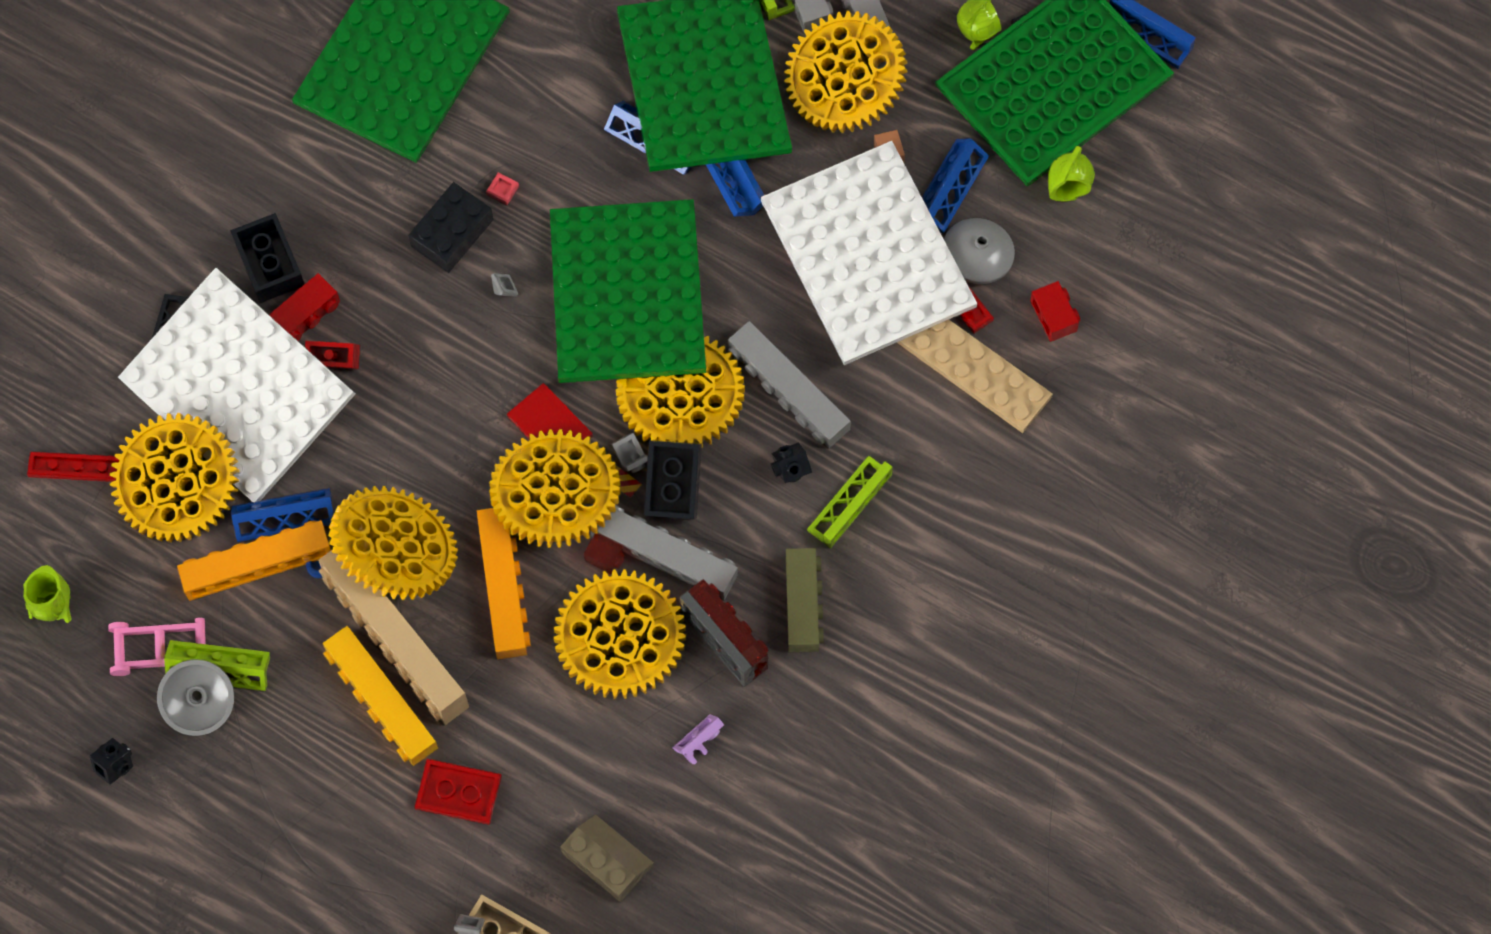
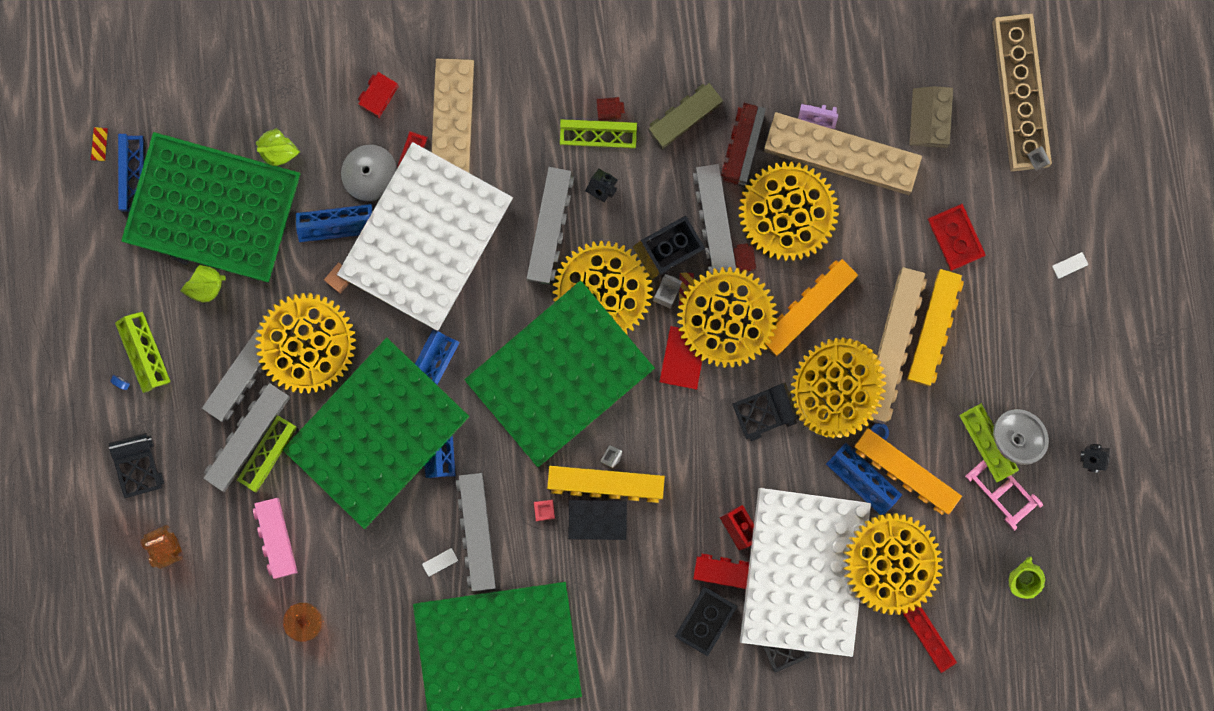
camera: 125 degrees left, 15 degrees up
(334, 892) = (1070, 265): none -> white sticker
(422, 482) = (781, 406): none -> black piece
(483, 259) = (606, 483): none -> yellow brick
(530, 61) = (440, 562): none -> white sticker
(531, 109) = (476, 531): none -> light grey brick
(638, 732) = (842, 153): none -> tan brick
(868, 528) = (609, 108): none -> clear red brick
(1200, 23) = (99, 144): none -> sticker

